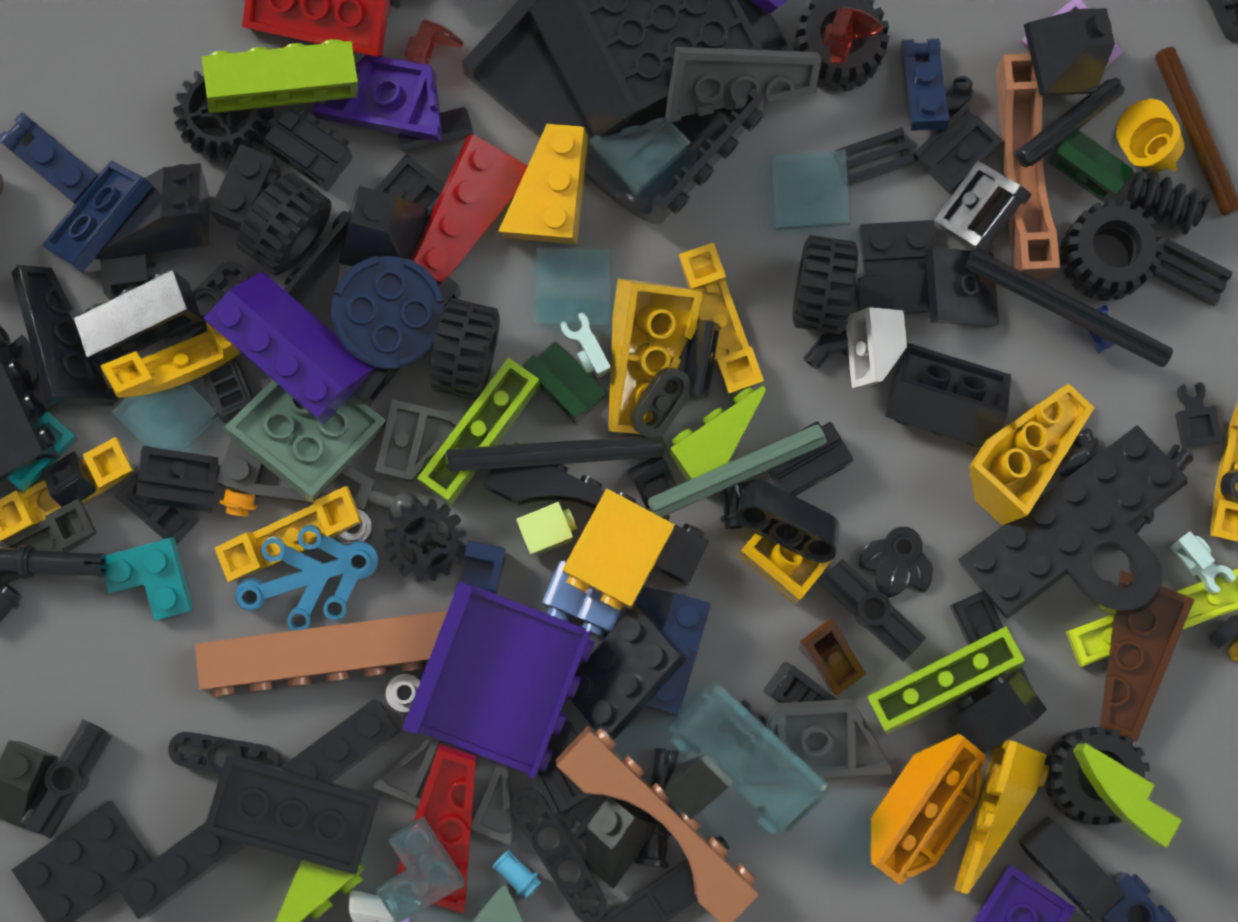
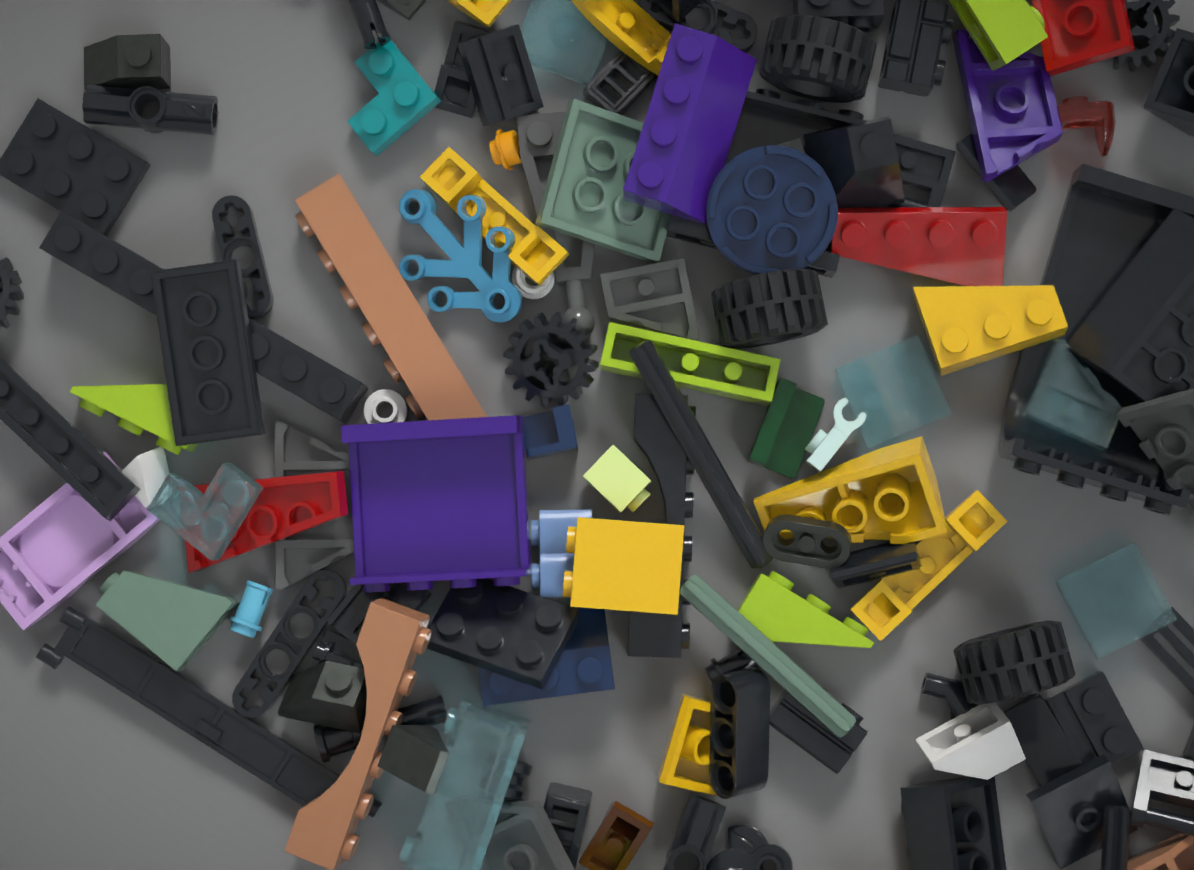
camera: 70 degrees right, 5 degrees up
(651, 478) = (723, 567): black slope -> none

